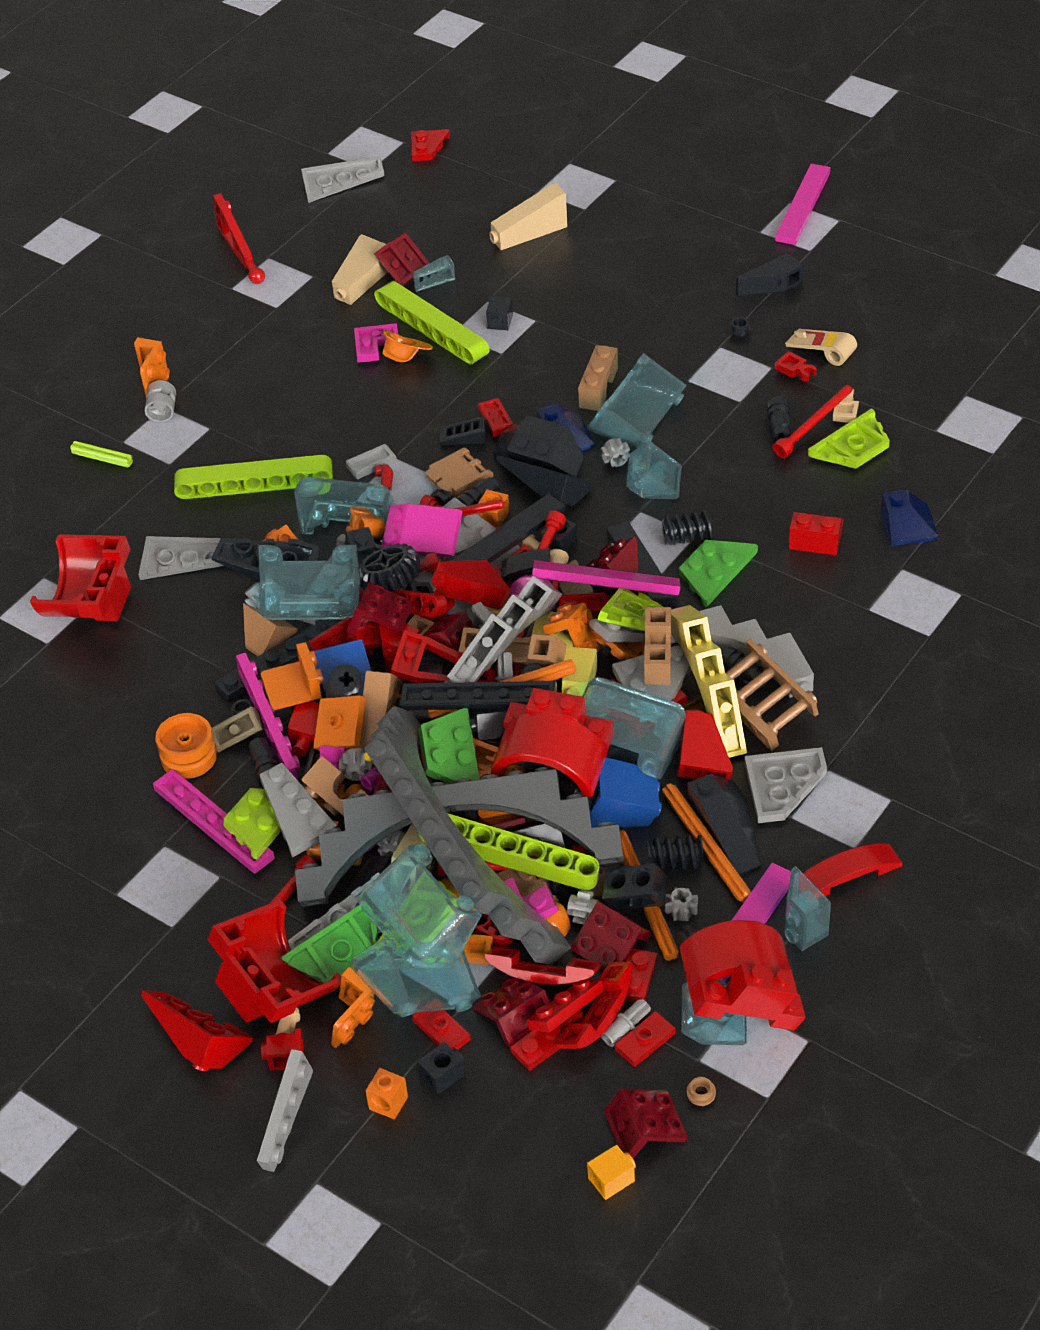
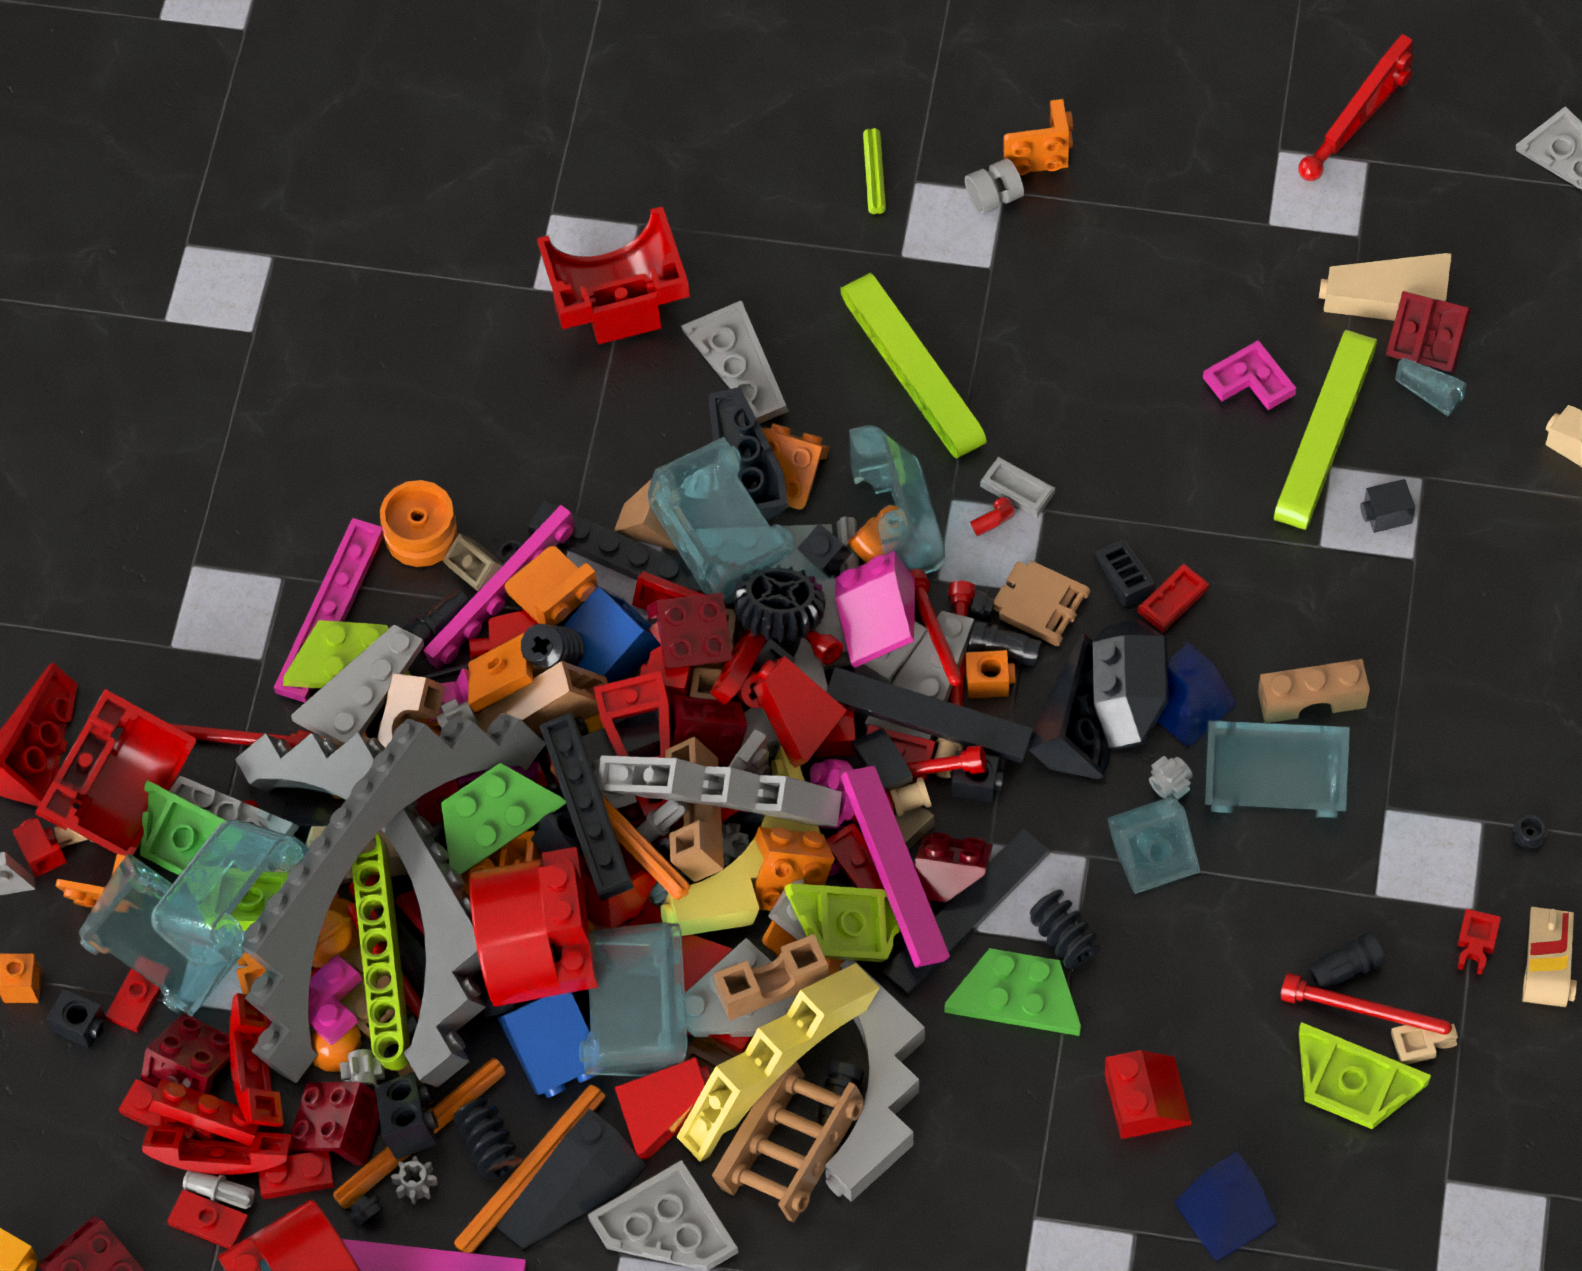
camera: 65 degrees right, 15 degrees up
(402, 348) = (1253, 418): orange piece -> none

